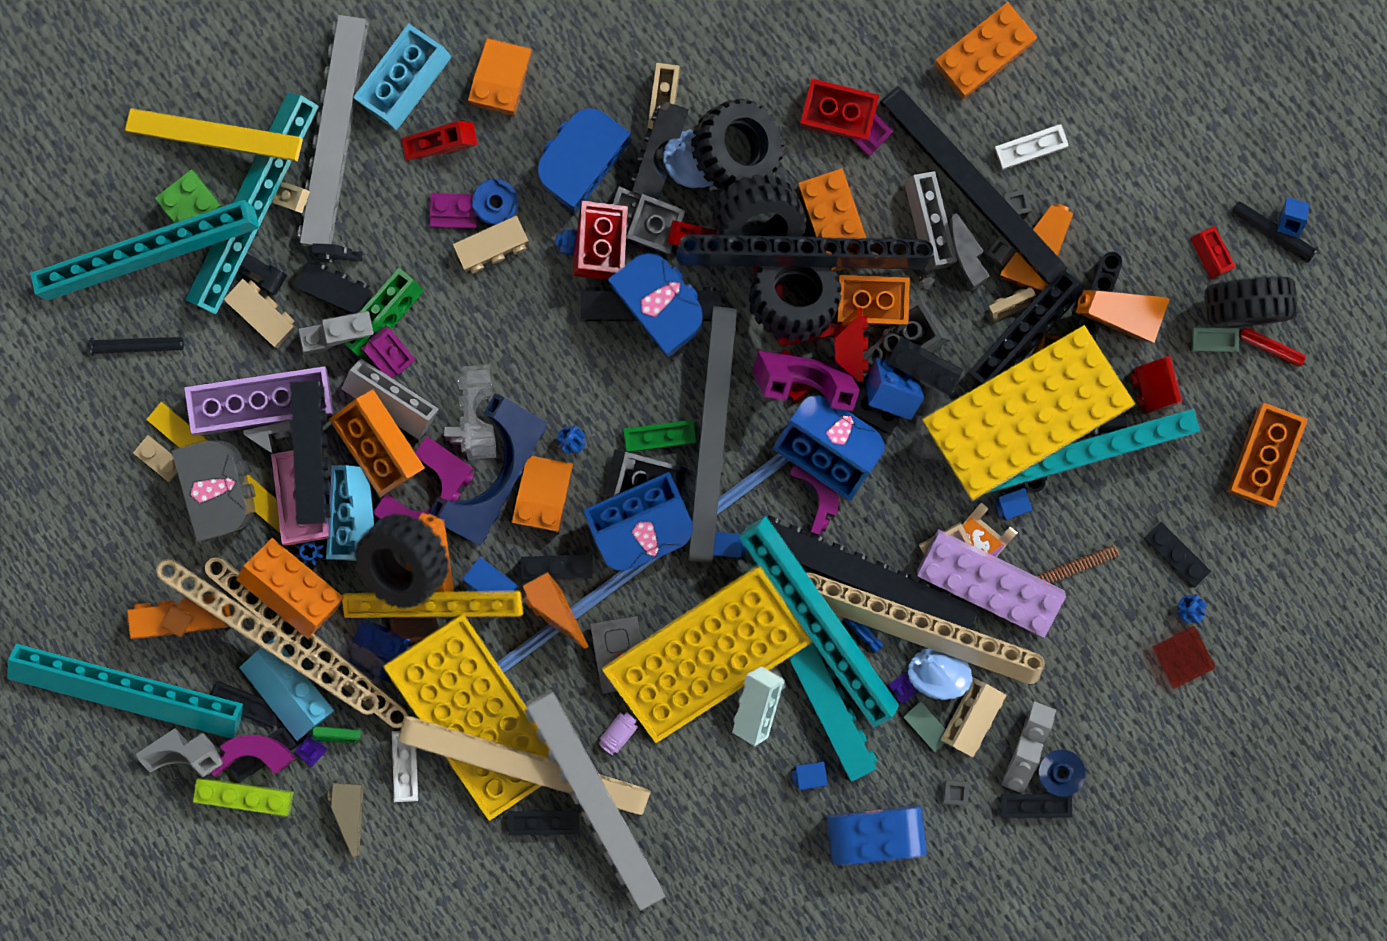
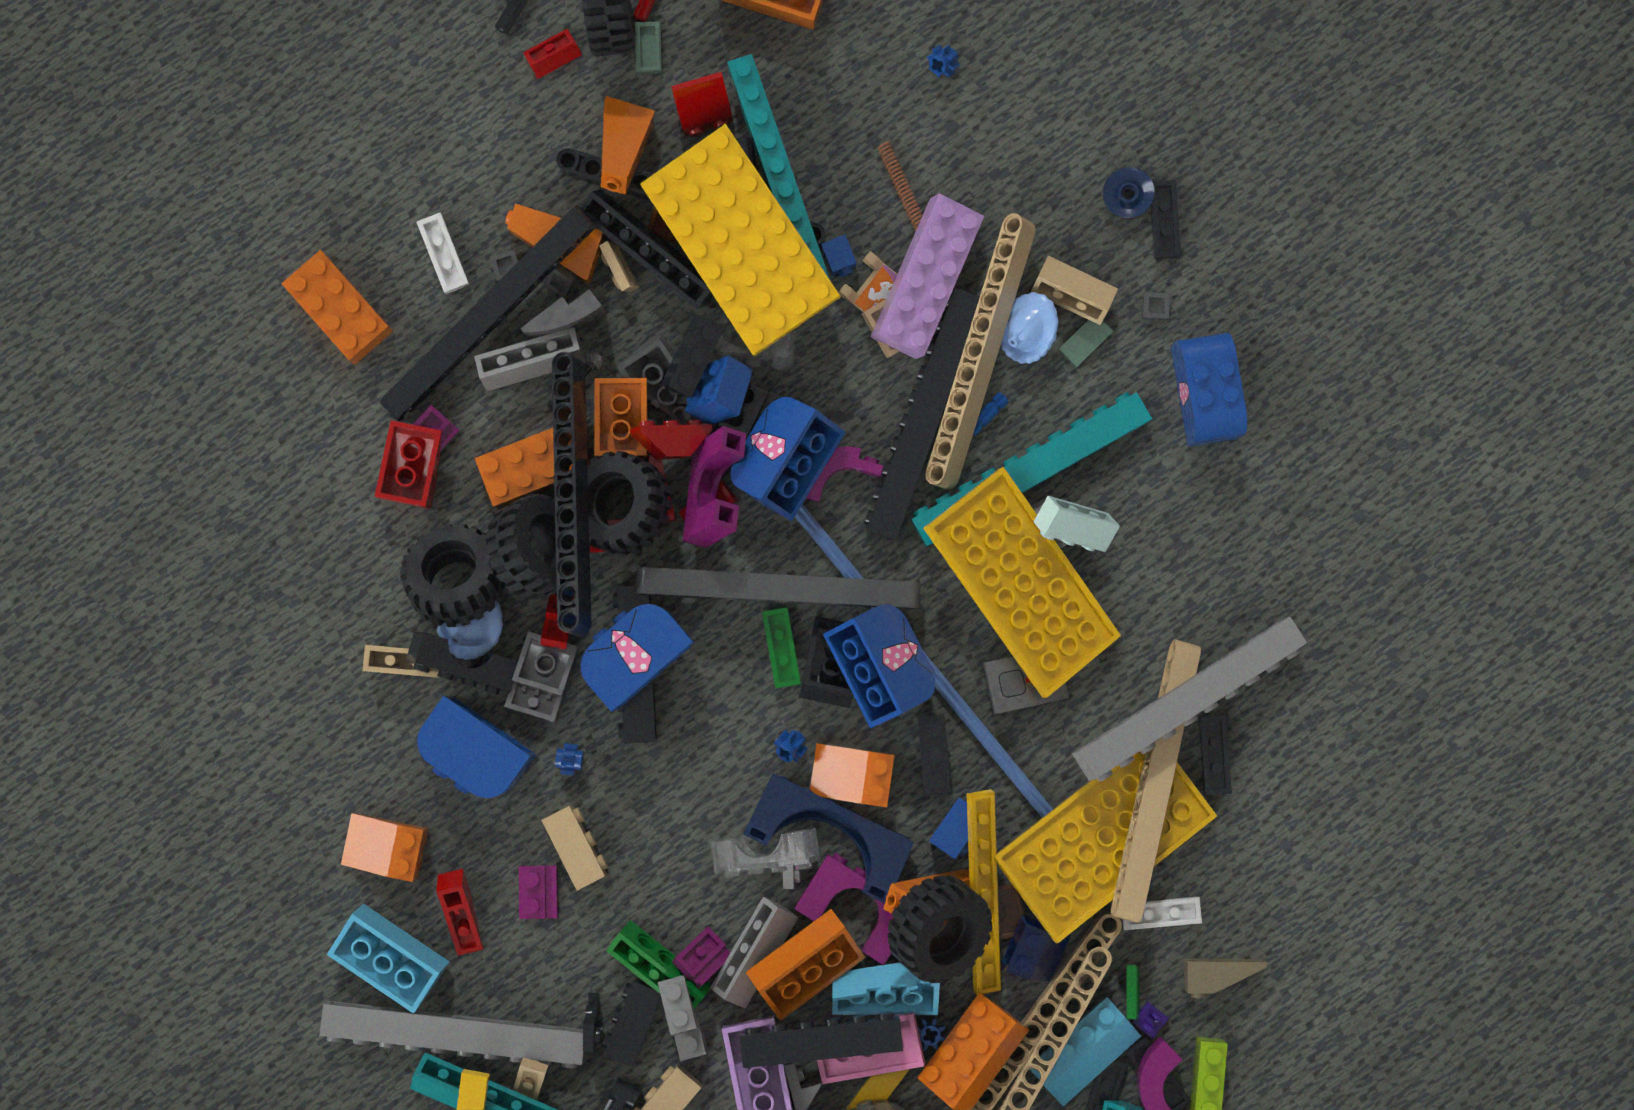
camera: 100 degrees left, 0 degrees up
(504, 192) = (530, 860): blue tile -> none
(549, 602) = (972, 761): orange slope -> none
(600, 240) = (566, 724): red slope -> none
(618, 733) = (1112, 677): lavender head -> none
(728, 545) = (899, 564): blue brick -> none
(810, 775) = (1146, 465): blue brick -> none
(819, 621) = (980, 460): teal brick -> none
(903, 688) = (1045, 368): dark purple tile -> none
(1029, 747) = (1113, 230): light grey arch -> none
(1177, 554) = (884, 79): black plate -> none
(1183, 657) = (995, 68): clear red plate -> none

